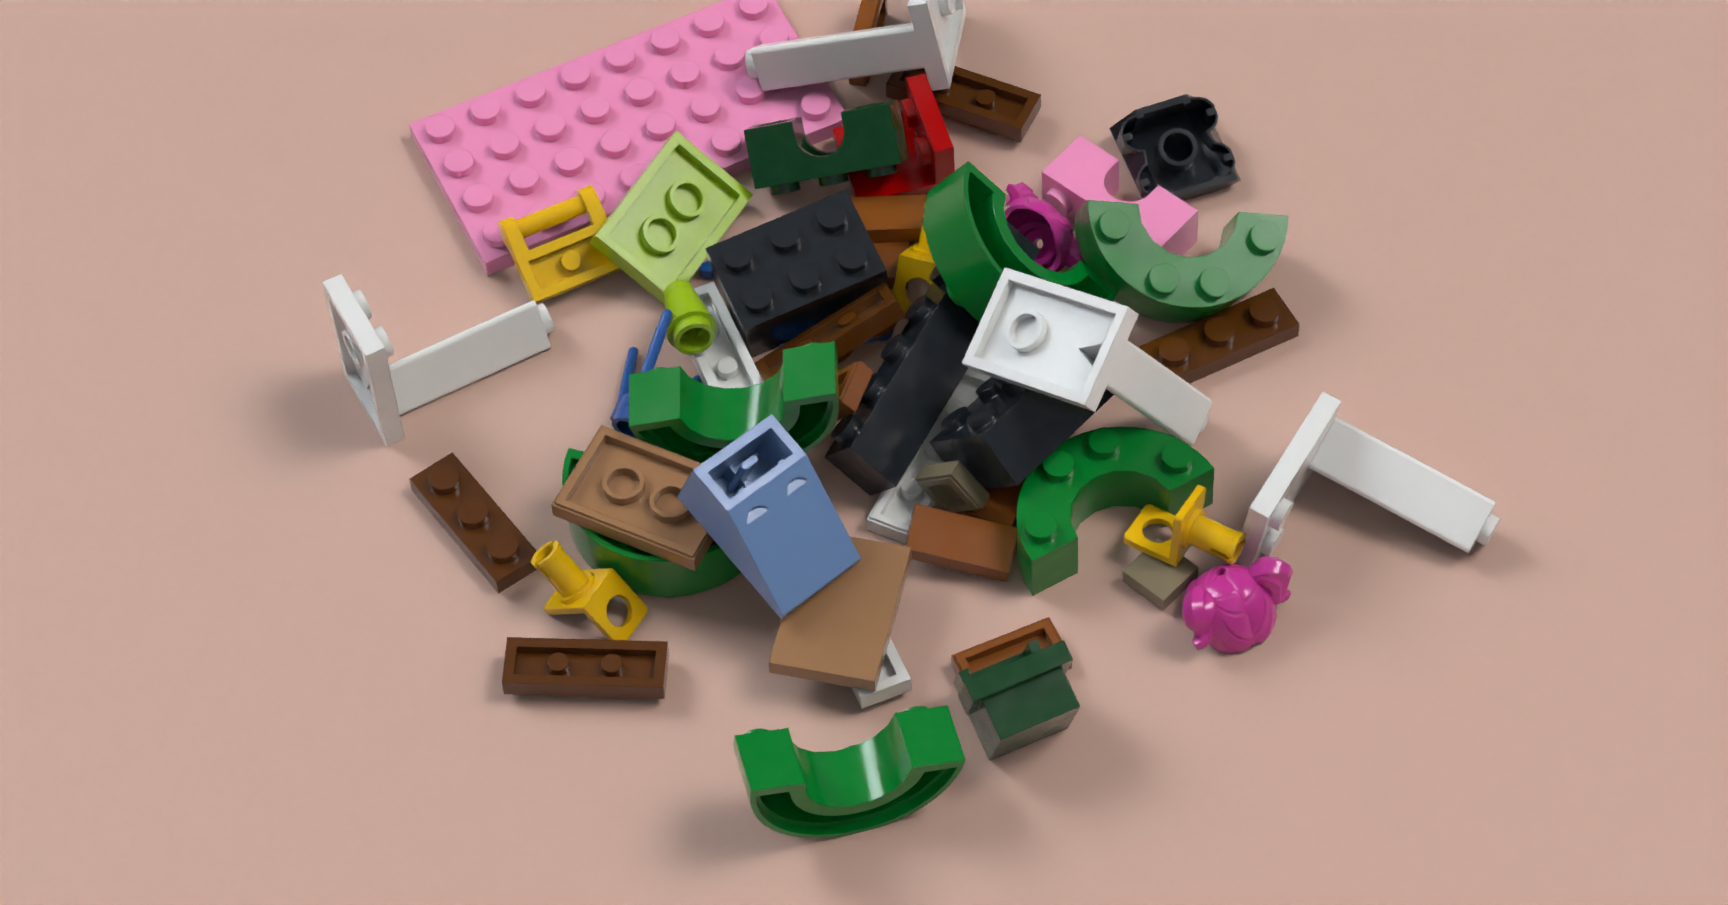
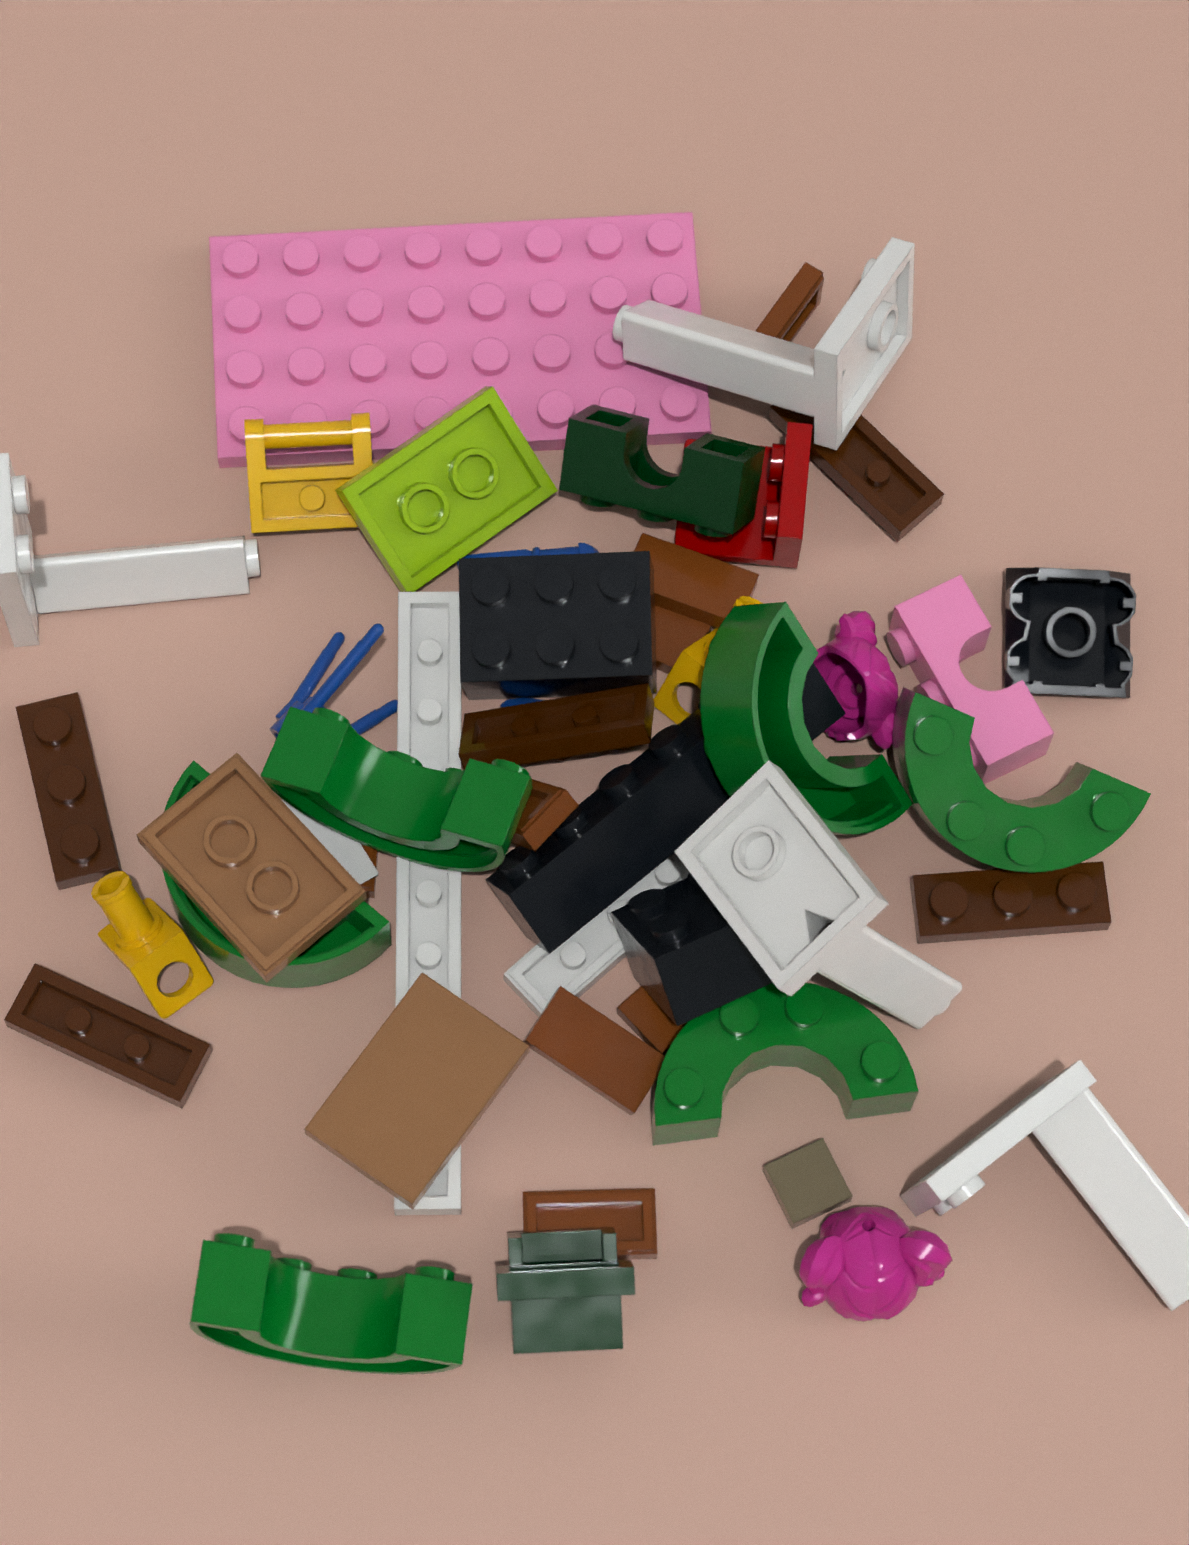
camera: 15 degrees right, 15 degrees up
(691, 324) = (406, 643): lime cone -> none
(771, 516) = (372, 964): medium blue slope -> none
(952, 486) = (612, 981): dark tan tile -> none
(1188, 529) = (856, 1156): yellow bracket -> none

